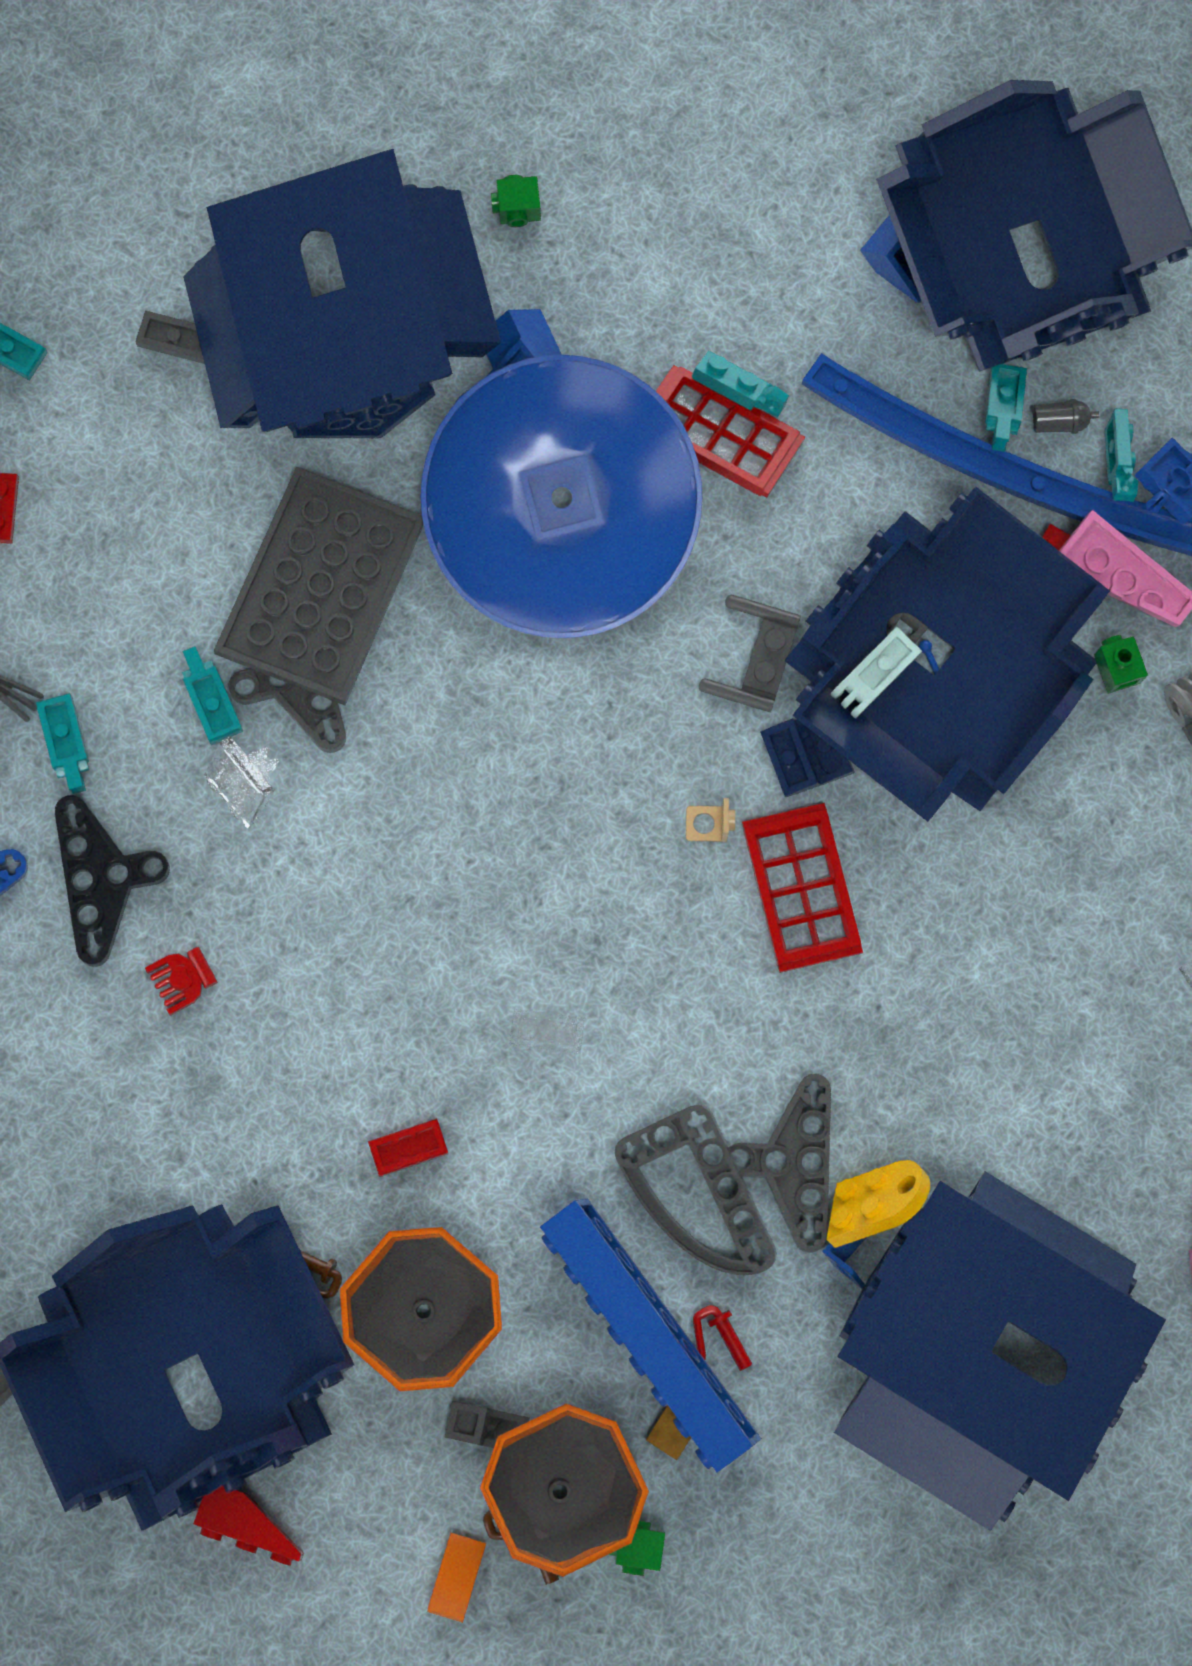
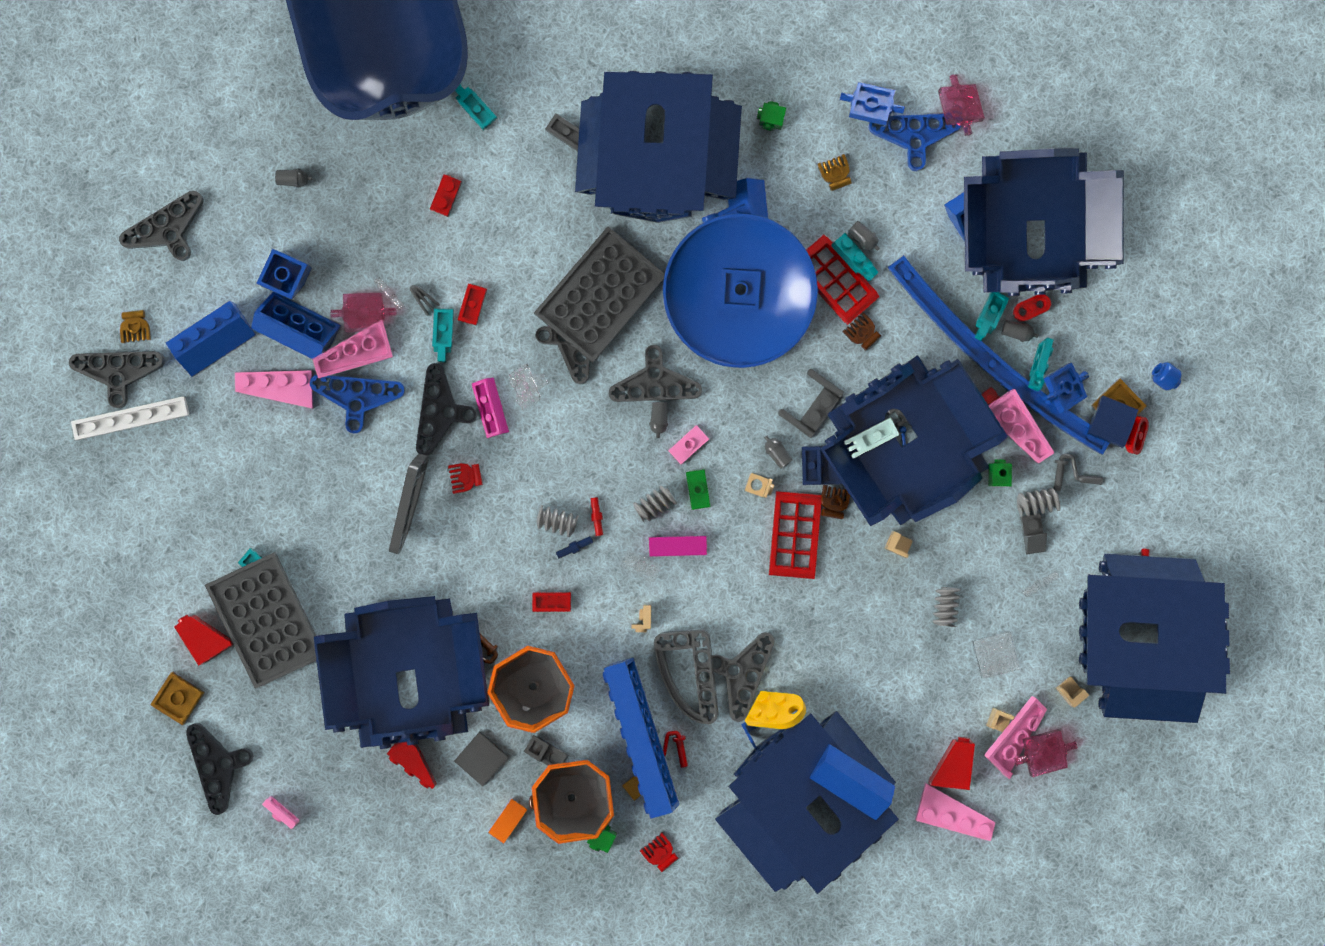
camera: 15 degrees right, 10 degrees up
(93, 1049) = (408, 501): none -> dark grey beam
(101, 675) = (472, 304): none -> red plate
(188, 843) = (490, 407): none -> dark pink slope
(210, 698) = (524, 335): teal hinge -> none
(370, 1000) = (556, 521): none -> light grey piece
(371, 1478) = (481, 758): none -> dark grey tile
(417, 1037) = (574, 547): none -> dark blue bar
(439, 970) = (596, 516): none -> red bar
(448, 710) = (664, 381): none -> dark grey beam
(493, 762) = (658, 421): none -> dark grey piece
(534, 912) = (654, 503): none -> light grey piece
(561, 793) = (688, 444): none -> bright pink plate
(584, 1116) = (645, 616): none -> tan bracket
(601, 974) = (677, 546): none -> dark pink slope
(603, 864) = (698, 489): none -> green plate
(661, 259) = (837, 174): none -> pearl gold piece
(680, 126) = (872, 103): none -> plate
(721, 753) = (777, 452): none -> dark grey piece
(743, 345) = (864, 236): none -> dark grey piece
(760, 1544) = (662, 854): none -> red piece
(787, 149) = (925, 134): none -> blue beam
(801, 505) = (864, 333): none -> reddish brown piece
(830, 82) = (961, 104): none -> clear pink plate
(852, 809) = (835, 503): none -> reddish brown piece
(988, 843) = (898, 544): none -> tan panel
(1060, 1279) = (853, 782): none -> blue slope
(1069, 372) = (1031, 307): none -> red plate
(1111, 922) = (946, 606): none -> light grey piece

